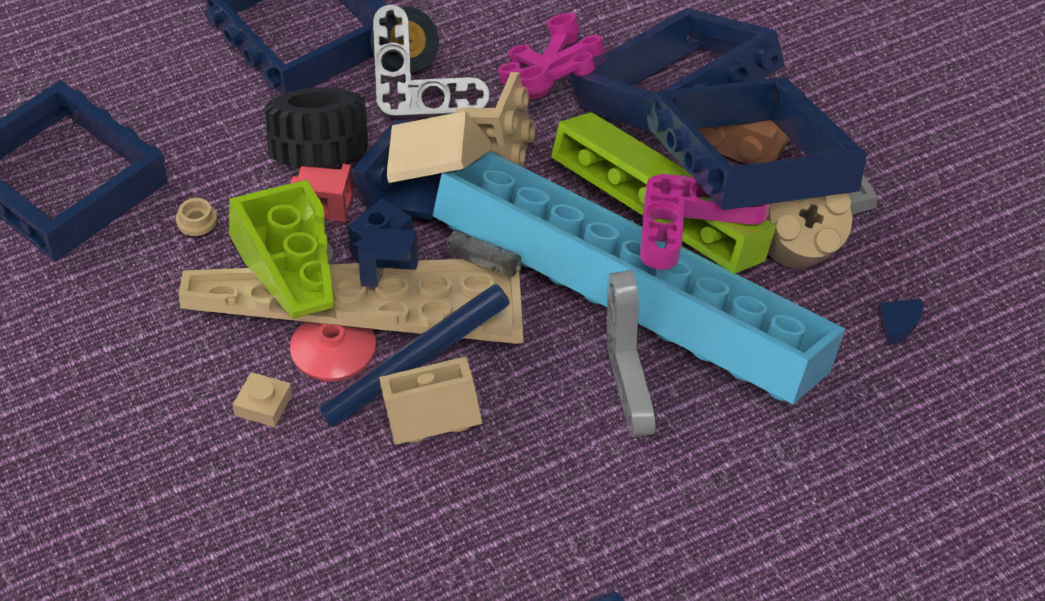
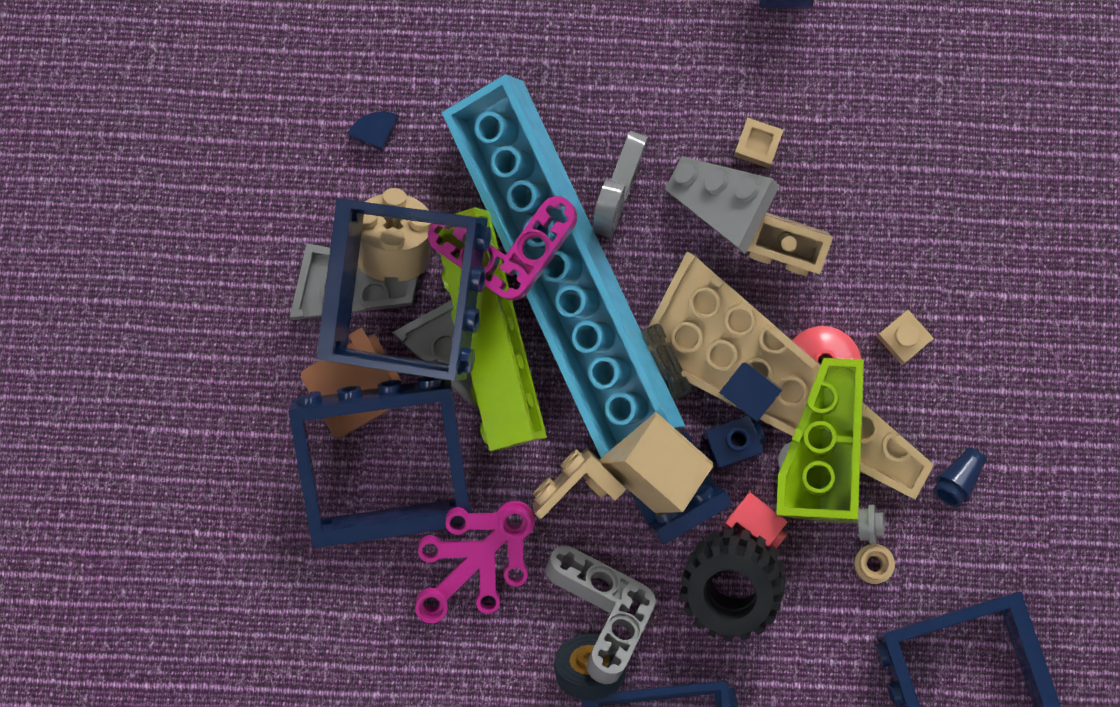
camera: 150 degrees left, 30 degrees up
(146, 308) = (959, 479): none -> dark blue cone
(215, 237) = (870, 524): none -> light grey plate
(415, 353) = (778, 283): dark blue axle -> none
(517, 486) = (758, 143): none -> tan plate
(518, 393) = (723, 198): none -> light grey wing

